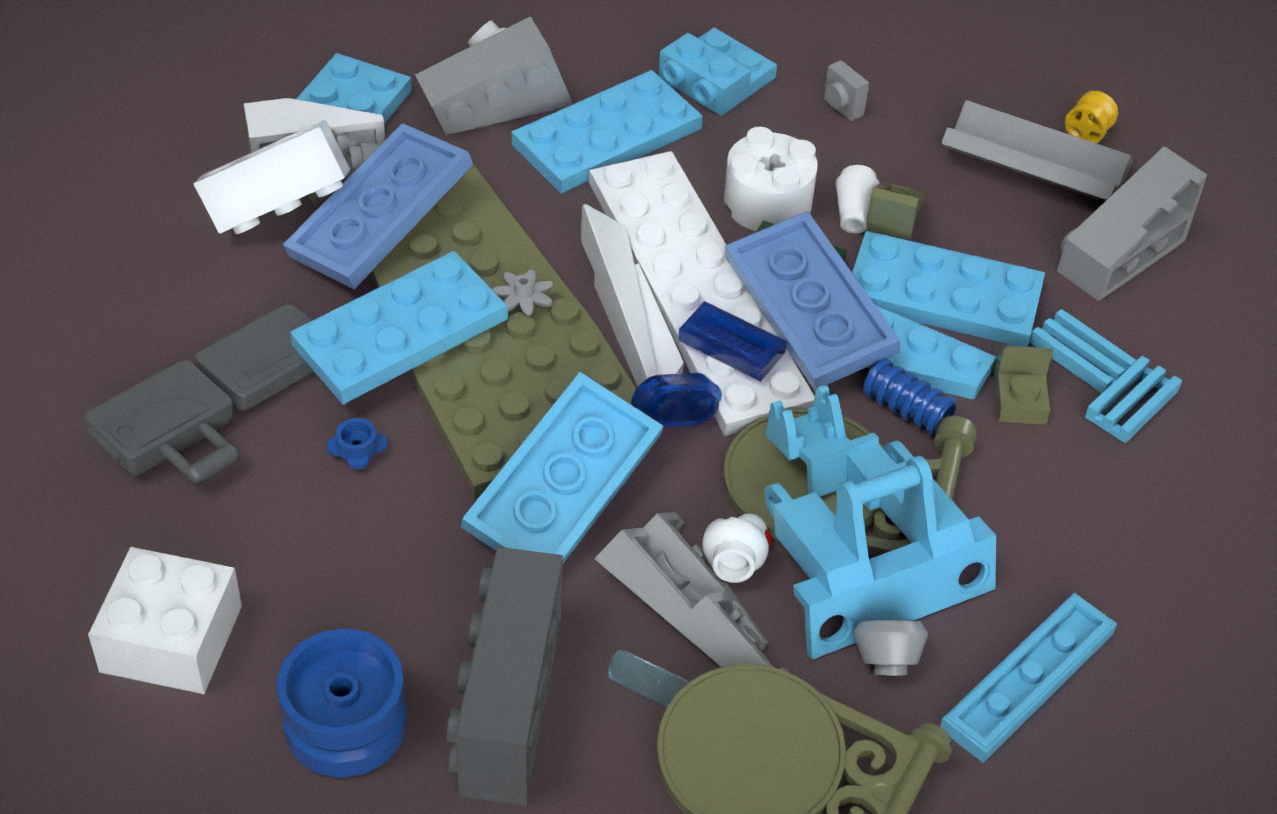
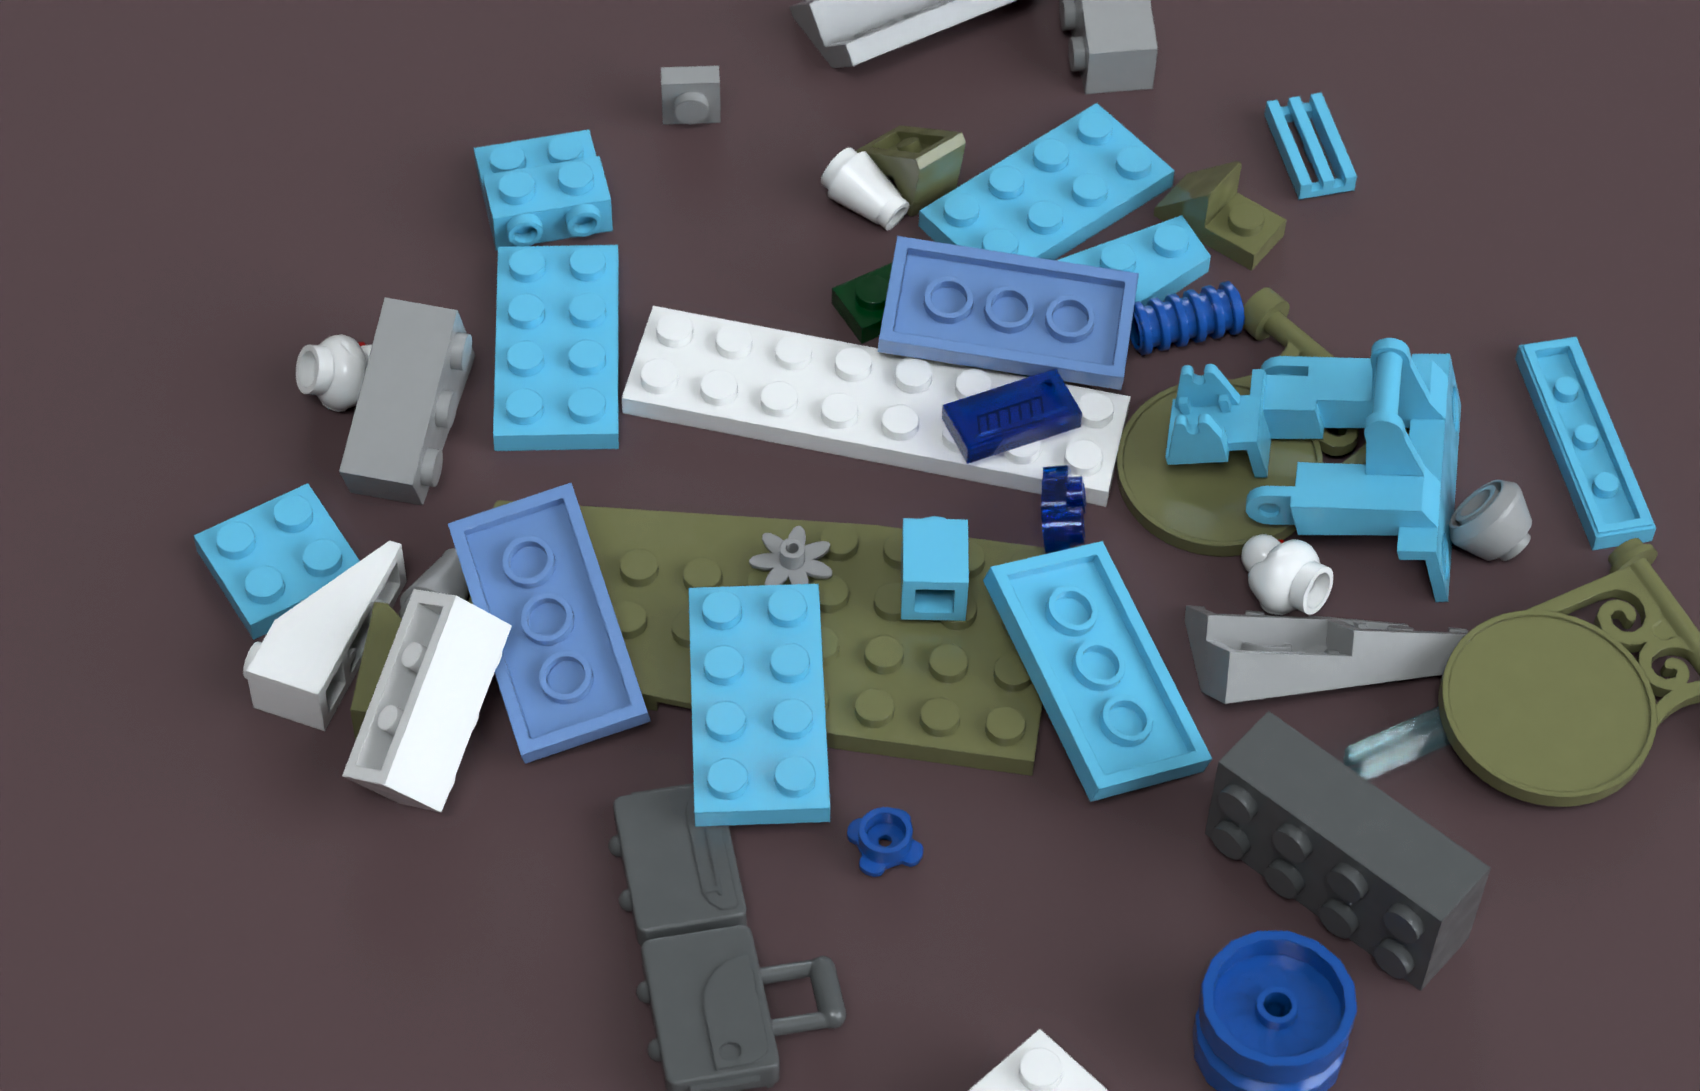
camera: 55 degrees left, 5 degrees up
(563, 350) = (934, 569): none -> medium azure brick
(628, 298) = (874, 481): white wedge -> none
(769, 178) = (787, 244): white brick -> none
(1086, 348) = (1216, 136): medium azure tile -> none

